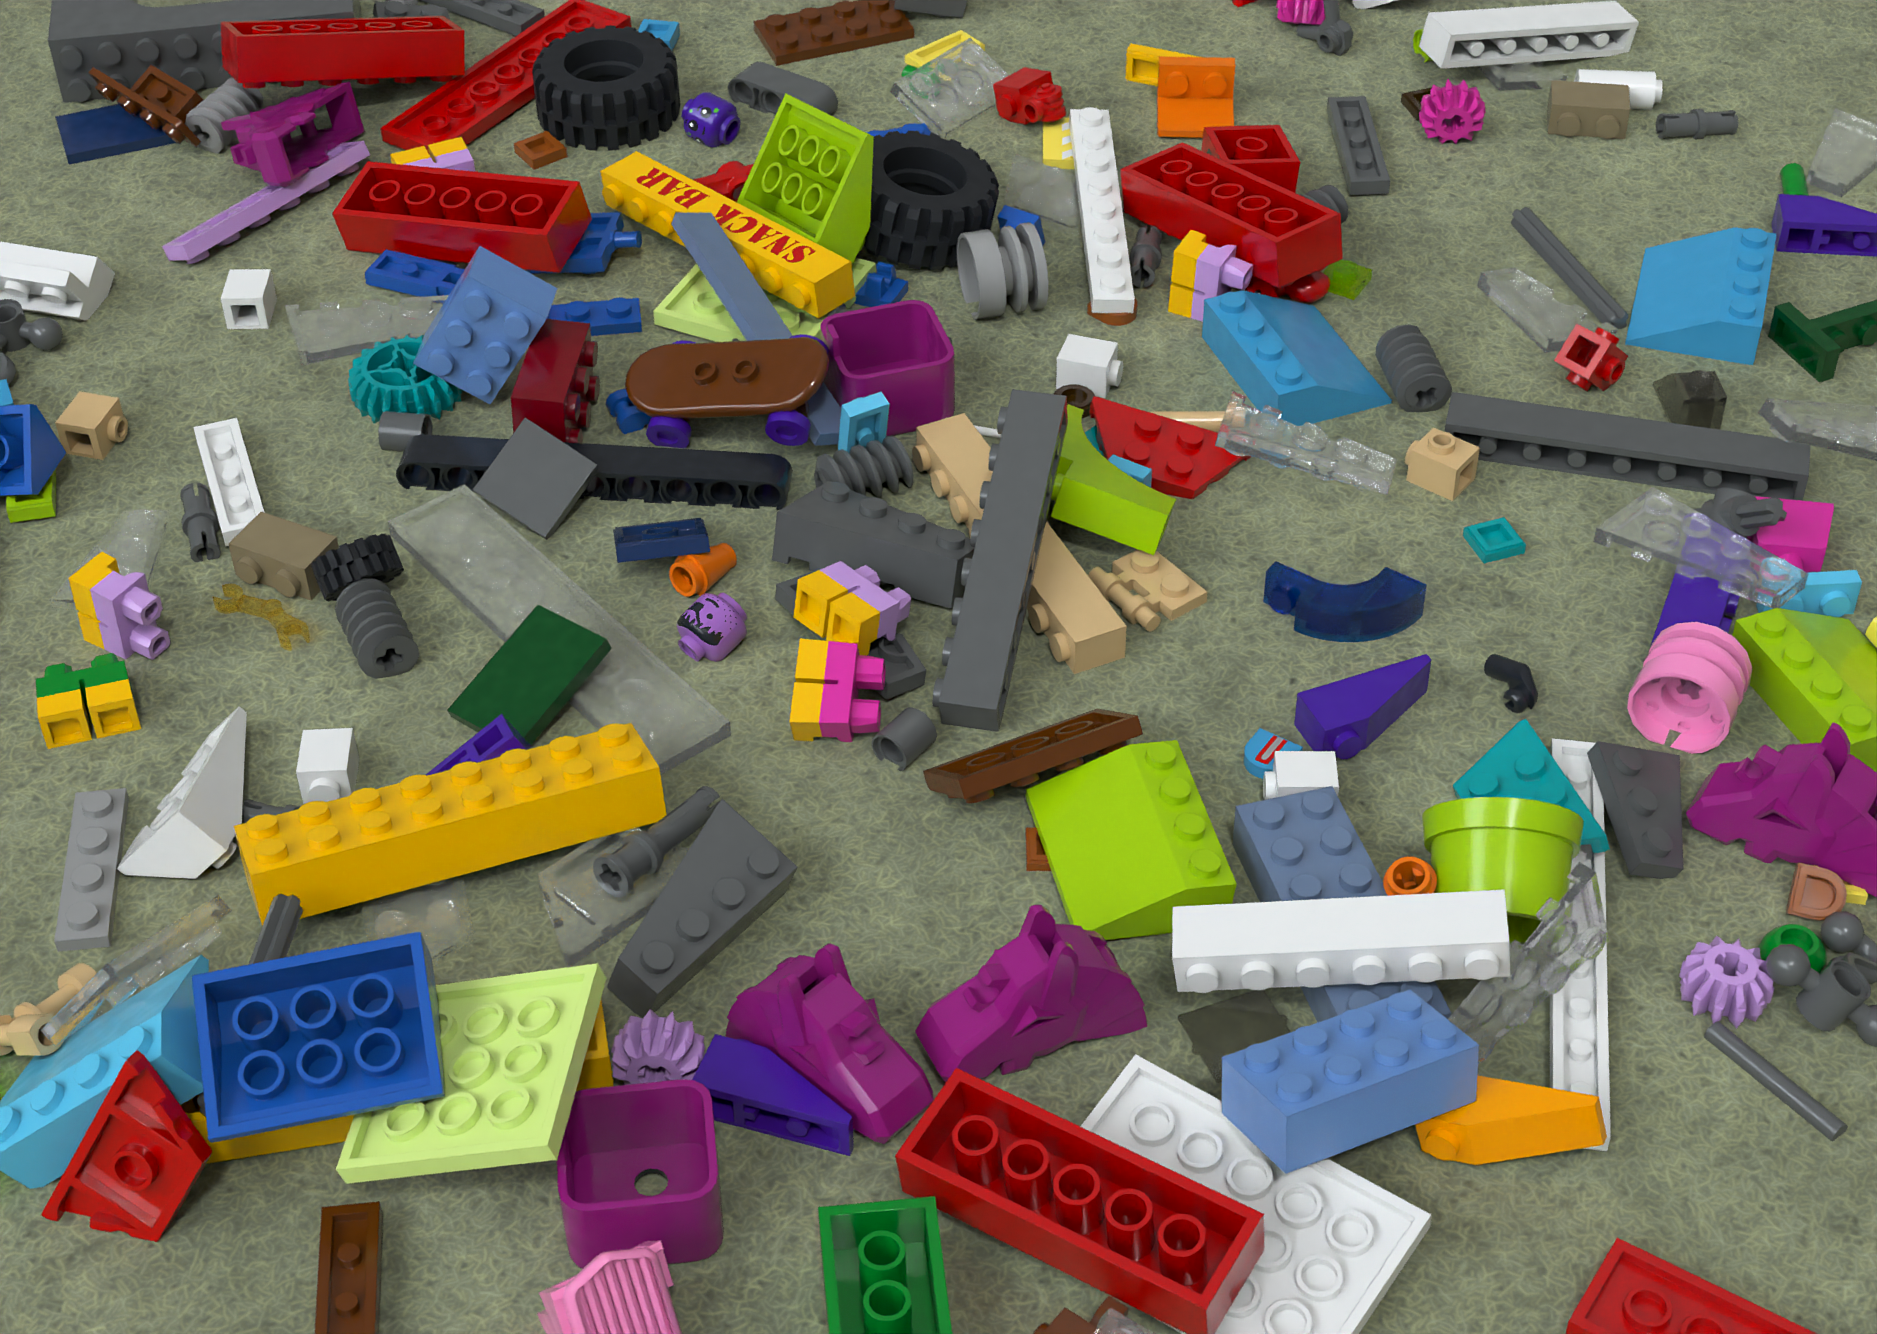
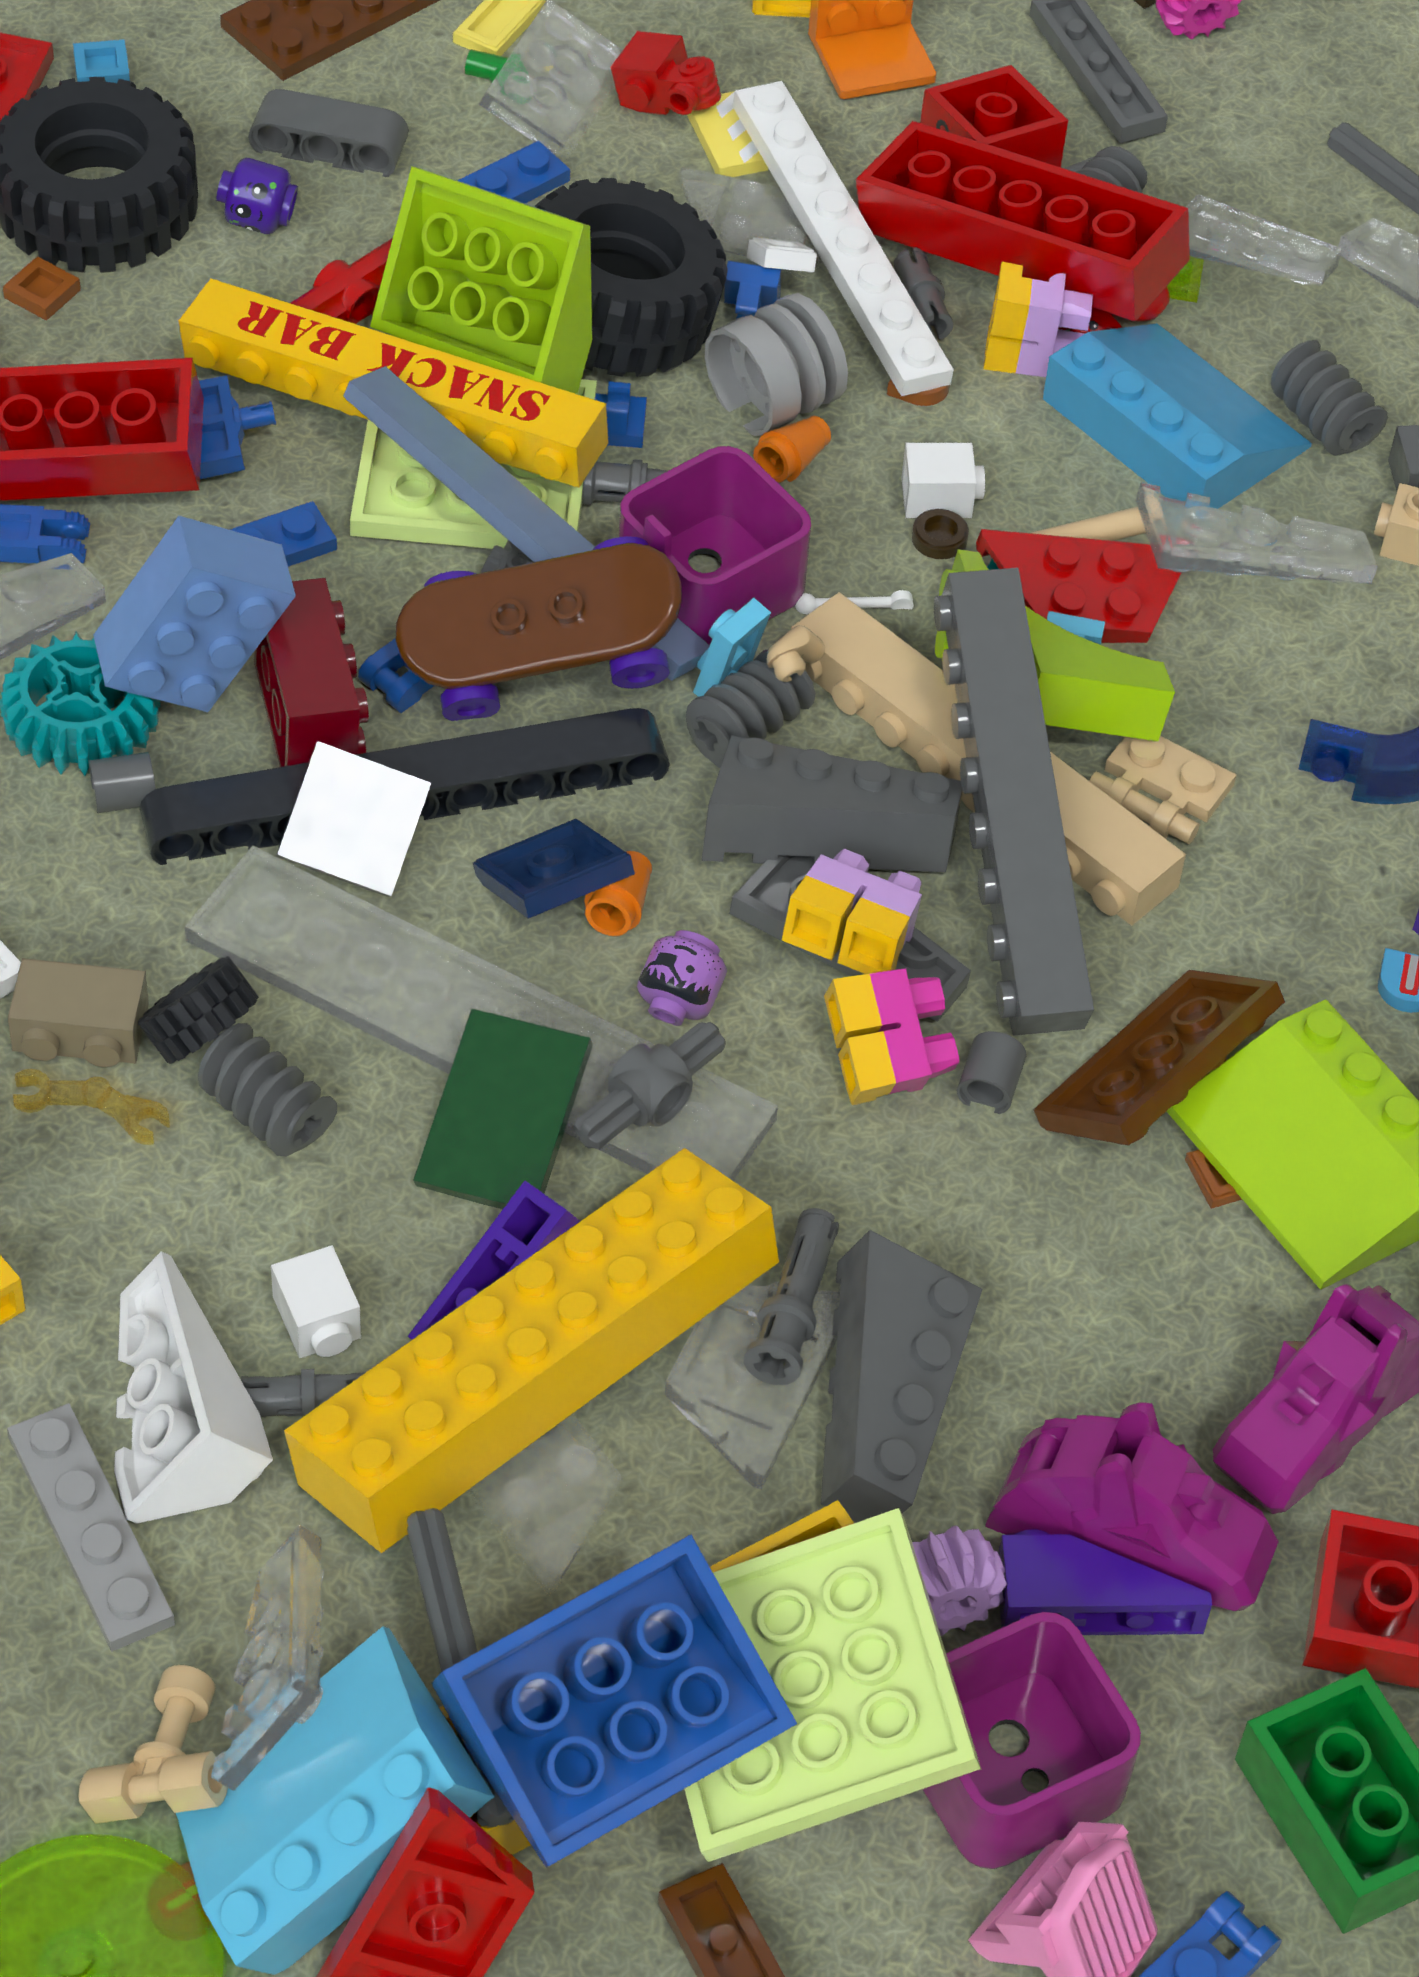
camera: 25 degrees left, 10 degrees up
(636, 681) = (649, 1085): none -> dark grey axle
(903, 430) = (793, 651): none -> tan arm
(992, 328) = (791, 447): none -> orange cone
(1047, 209) = (781, 254): none -> white tile
(1409, 265) = (1256, 244): none -> clear wing

